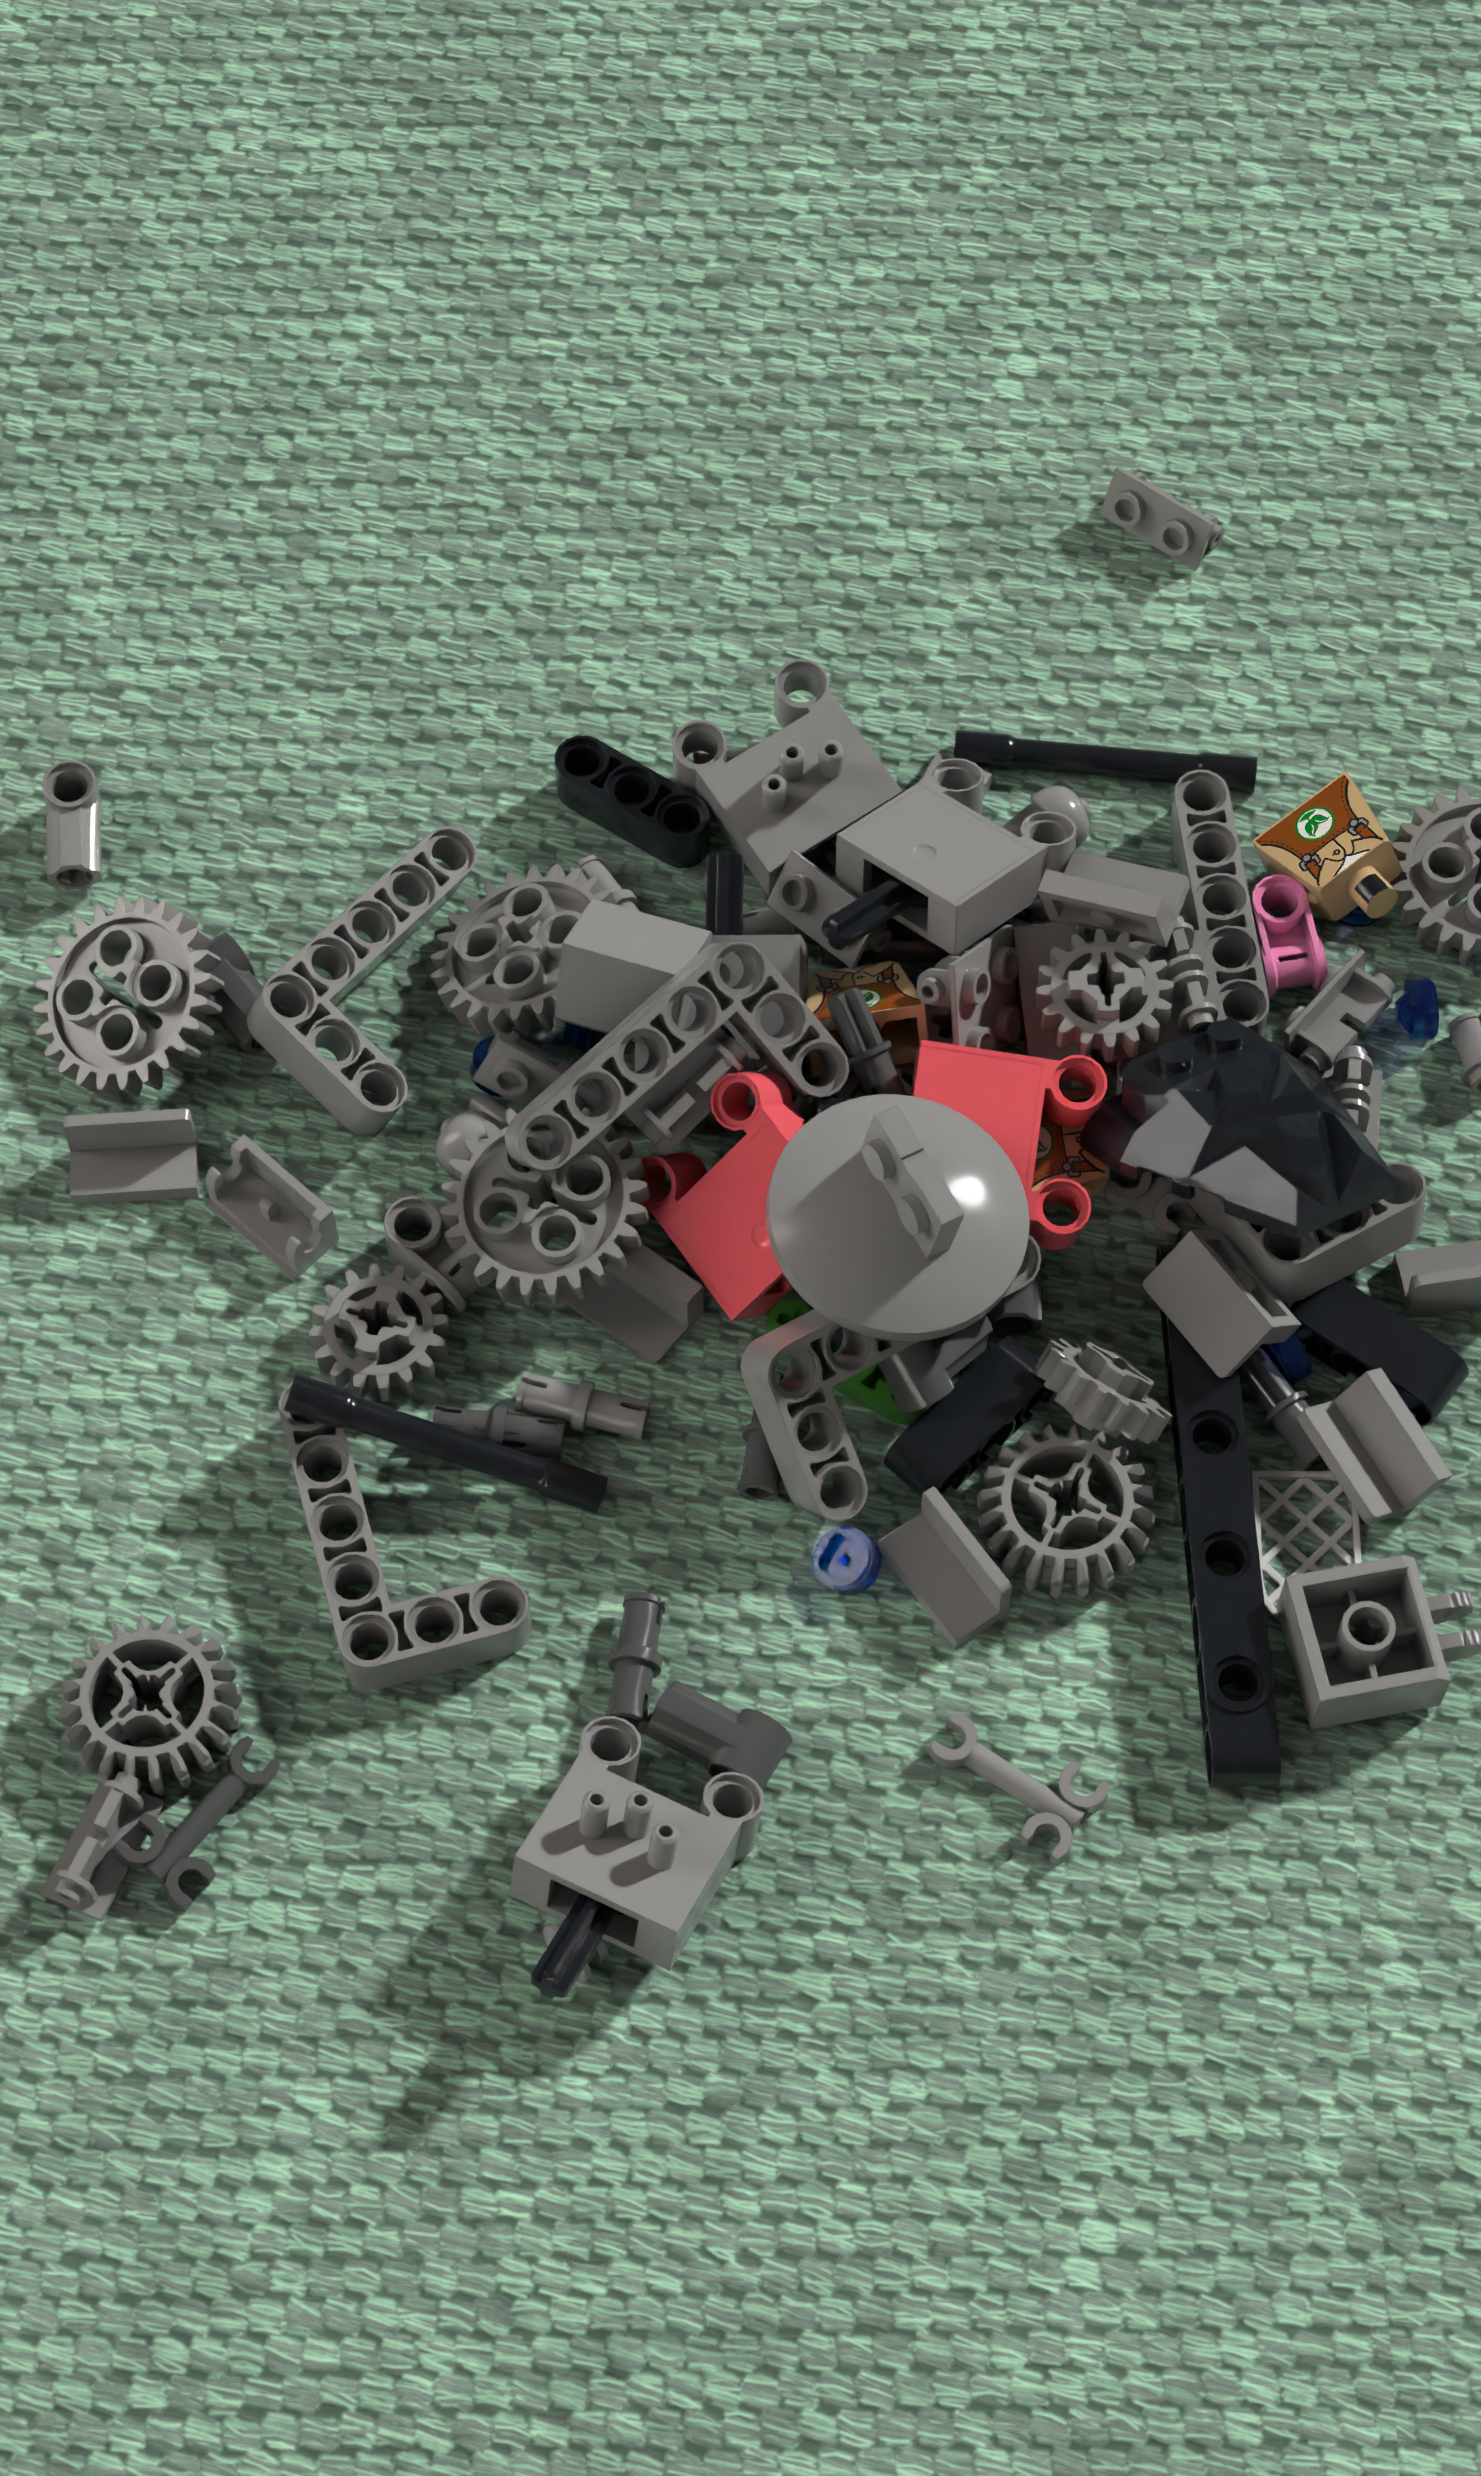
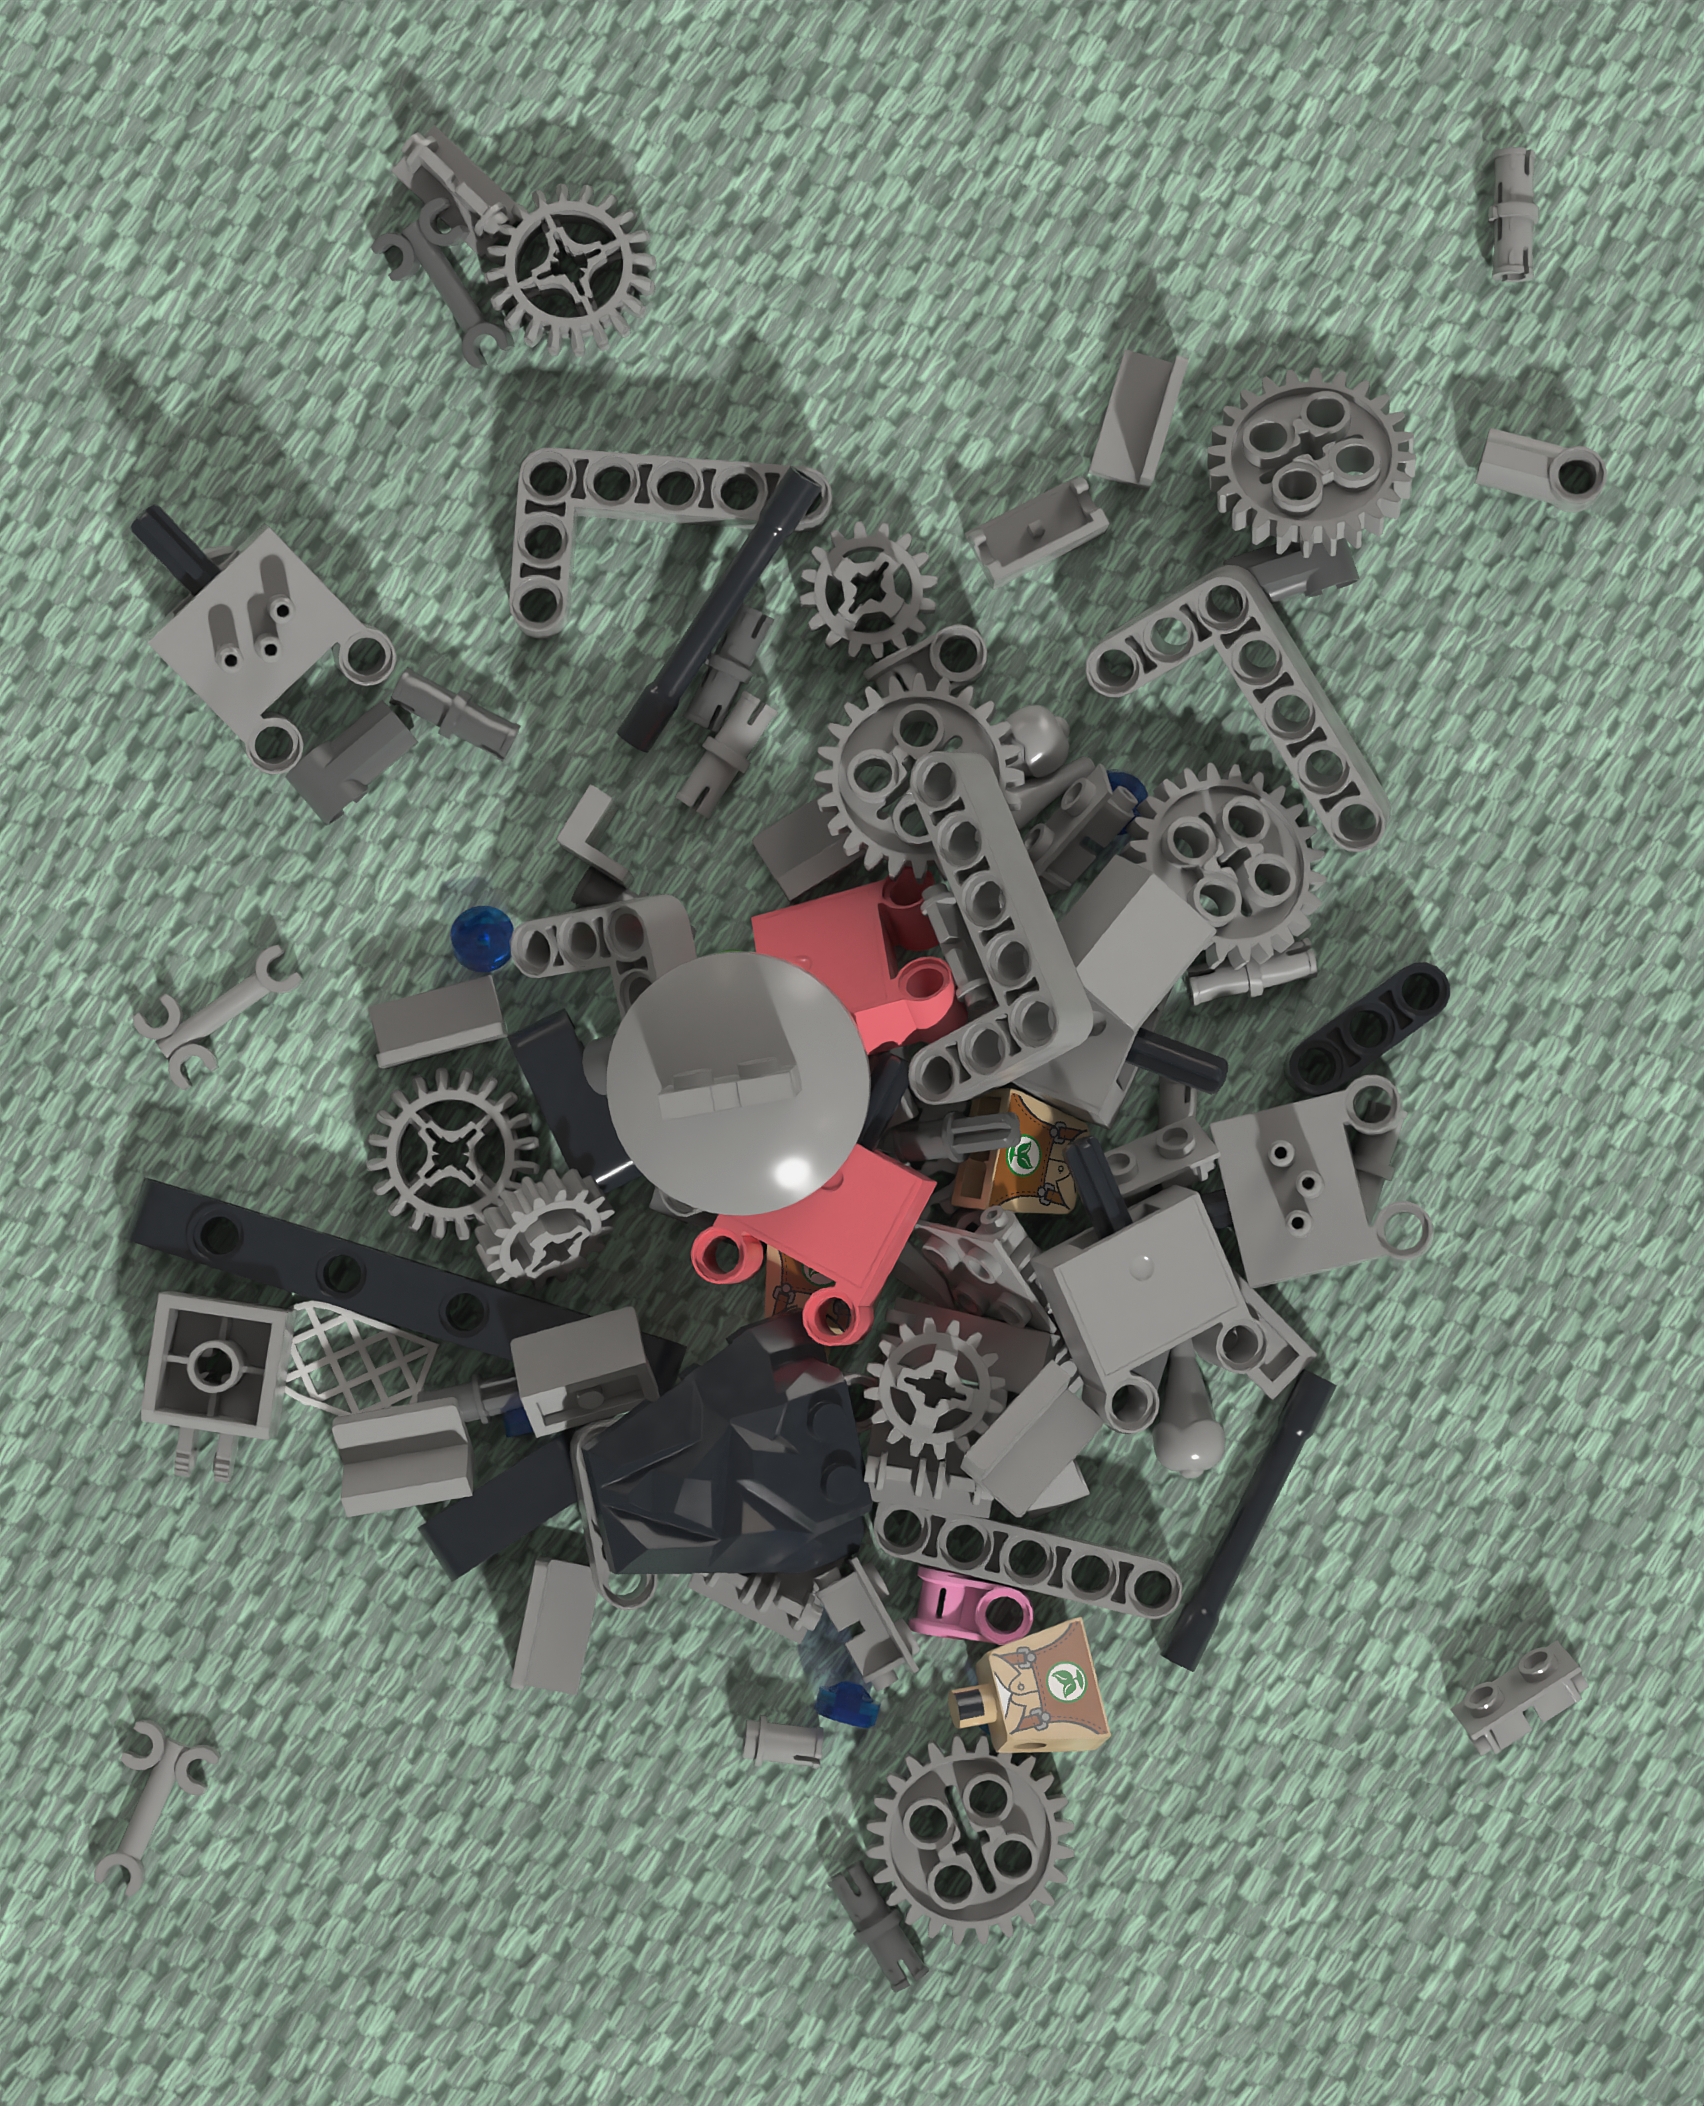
camera: 110 degrees right, 25 degrees up
(704, 1480) = (586, 828): none -> light grey panel

